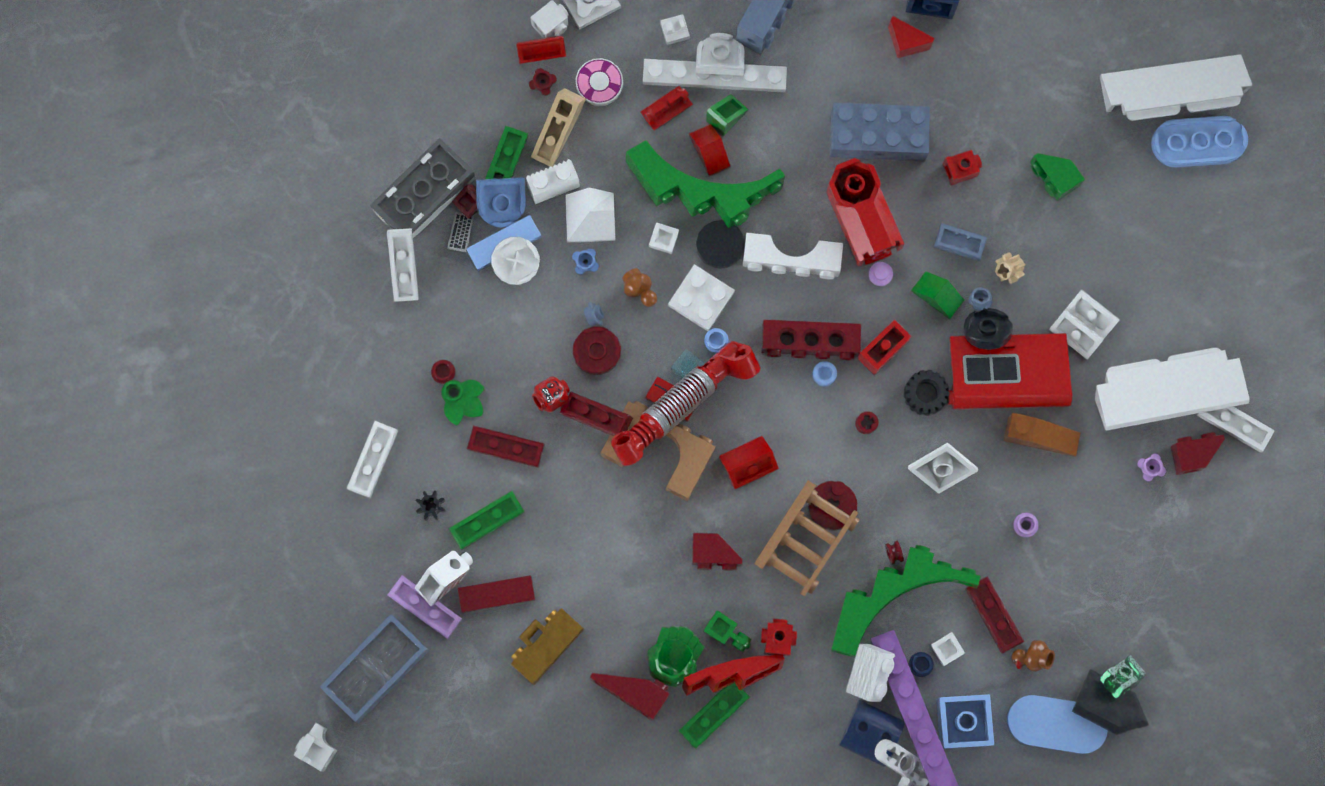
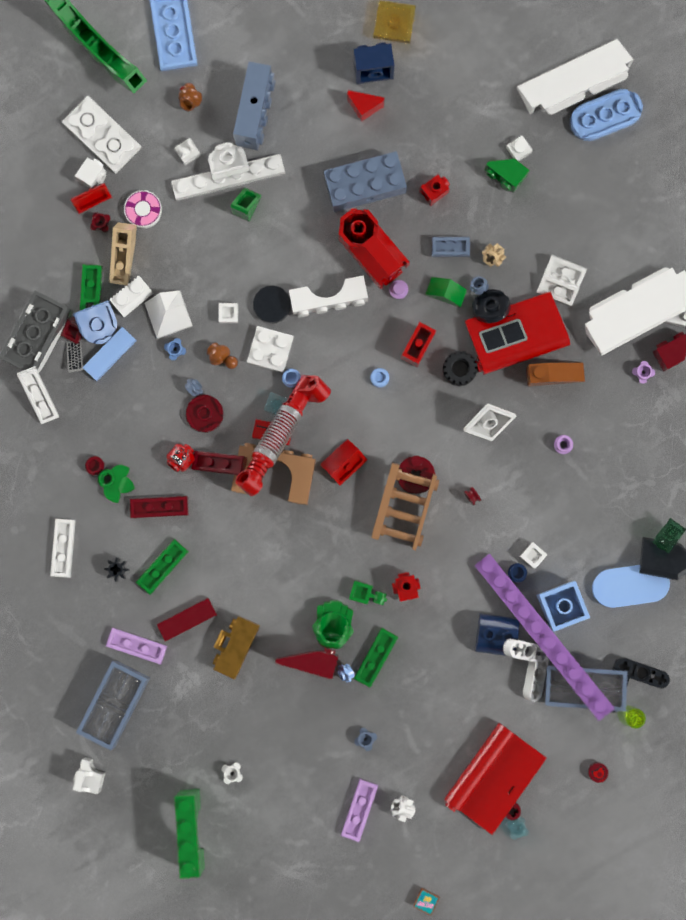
camera: 10 degrees left, 5 degrees up
(443, 576) = (143, 619): white torso -> none
(515, 260) = (122, 365): white tile -> none
(667, 107) = (199, 213): red hinge -> none
(671, 720) = (345, 673): none -> light blue plate
(698, 196) = (244, 273): green arch -> none
(710, 149) = (242, 235): red slope -> none
(713, 550) = (336, 537): dark red slope -> none
(741, 671) = (386, 621): red slope -> none
(847, 332) = (388, 342): dark red brick -> none
(860, 418) = (428, 406): dark red bush -> none
(870, 673) = (482, 592): white brick -> none
(919, 571) = (460, 547): green arch -> none
(995, 615) = (560, 518): dark red tile -> none
(1036, 657) = (600, 541): dark orange animal -> none
(1080, 149) = (519, 148): none -> white plate

